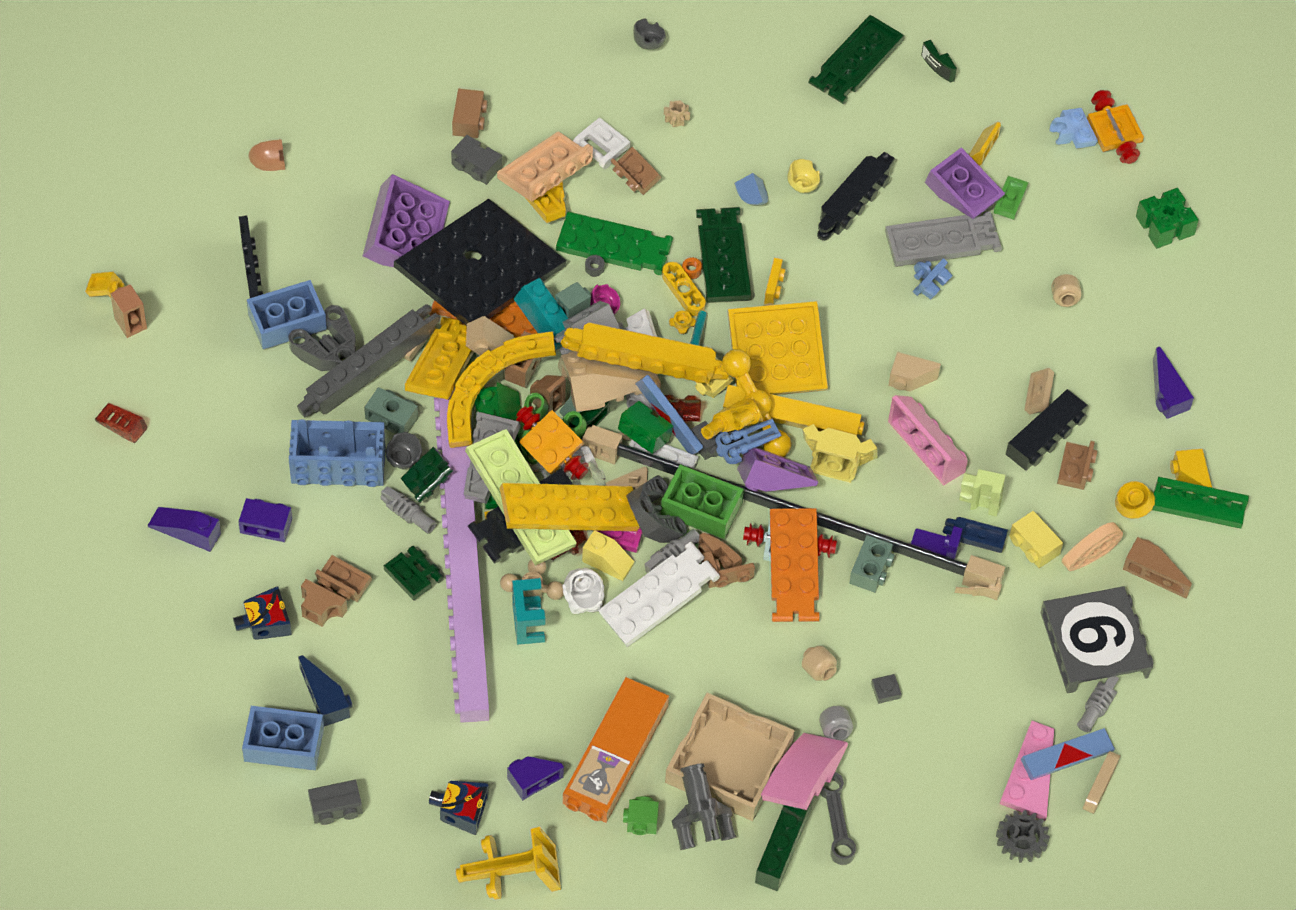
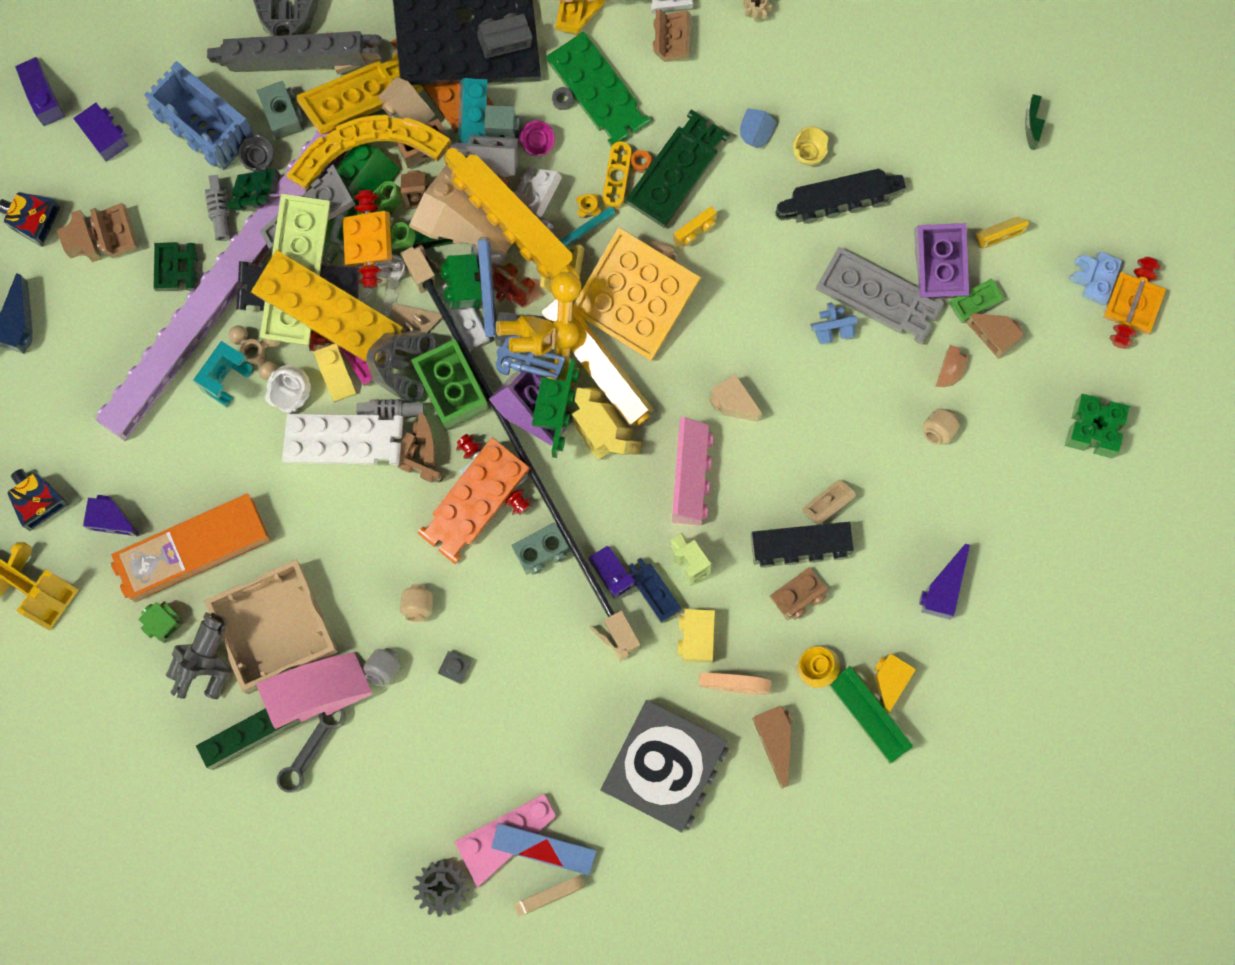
camera: 45 degrees right, 20 degrees up
(519, 244) = (504, 35): none -> dark grey brick
(796, 453) = (553, 404): none -> green bracket
(857, 58) = (963, 66): dark green hinge -> none
(1034, 250) = (952, 368): none -> nougat brick
(1043, 207) = (996, 332): none -> medium nougat slope
(1098, 703) = (613, 823): light grey hinge -> none

